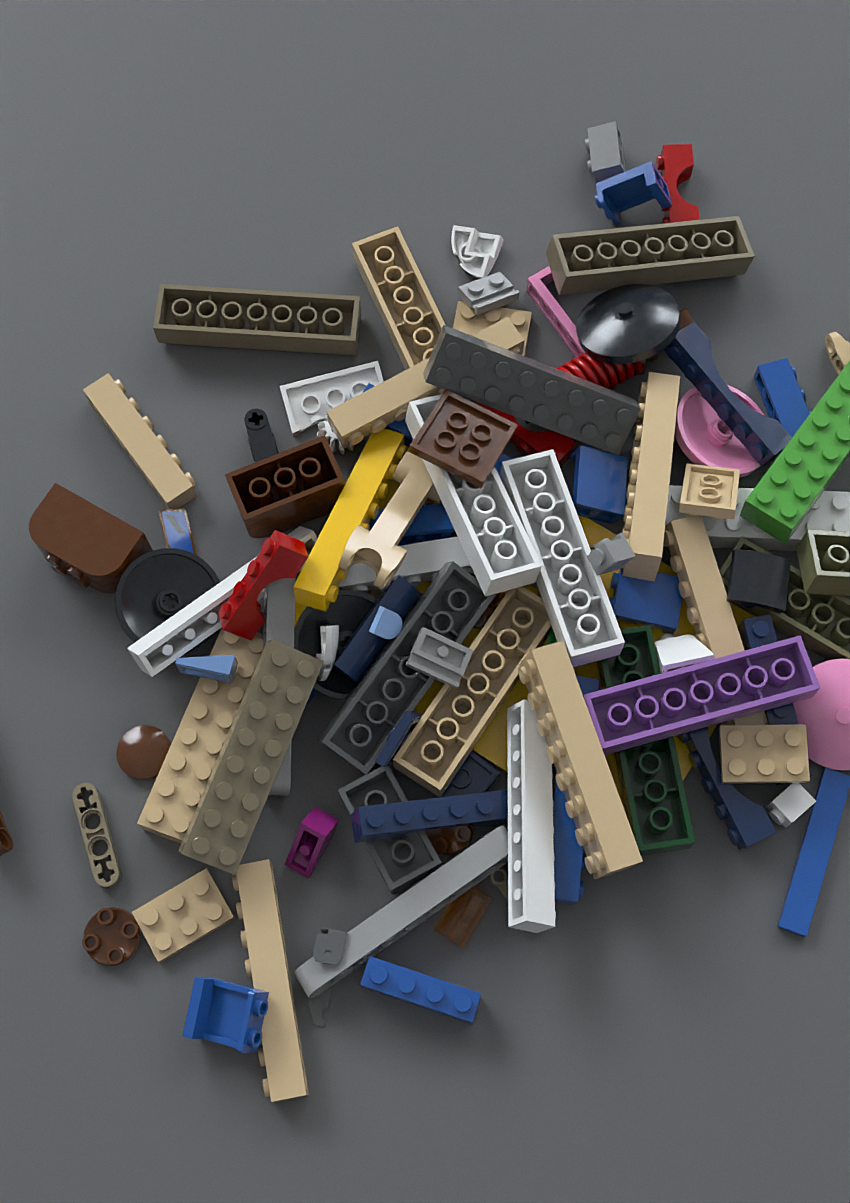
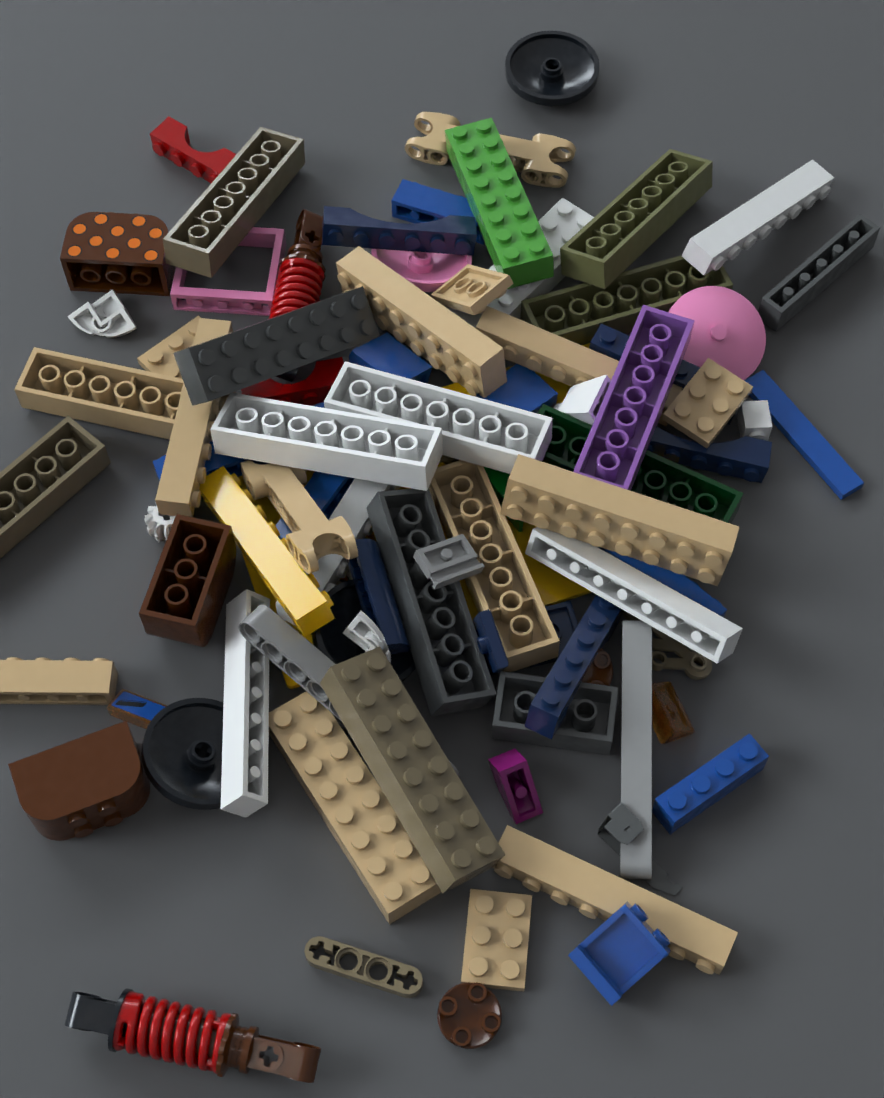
camera: 55 degrees left, 10 degrees down
(142, 751) = (319, 874): reddish brown dish -> none
(212, 667) = (303, 747): medium blue slope -> none
(260, 437) = (118, 582): black piece -> none
(279, 559) = (263, 614): red arch -> none
(312, 398) = (122, 513): white wing -> none
(386, 623) = (385, 579): light blue tile -> none
(463, 438) = (282, 409): reddish brown plate -> none
(488, 293) = (153, 331): light grey plate -> none
(528, 209) = (117, 254): none -> reddish brown brick
(605, 150) = (115, 173): light grey brick -> none
(610, 554) = (471, 378): light grey brick -> none
(628, 323) = (282, 249): black dish -> none
(631, 190) = (169, 174): blue panel -> none
(758, 580) = (569, 310): black slope -> none

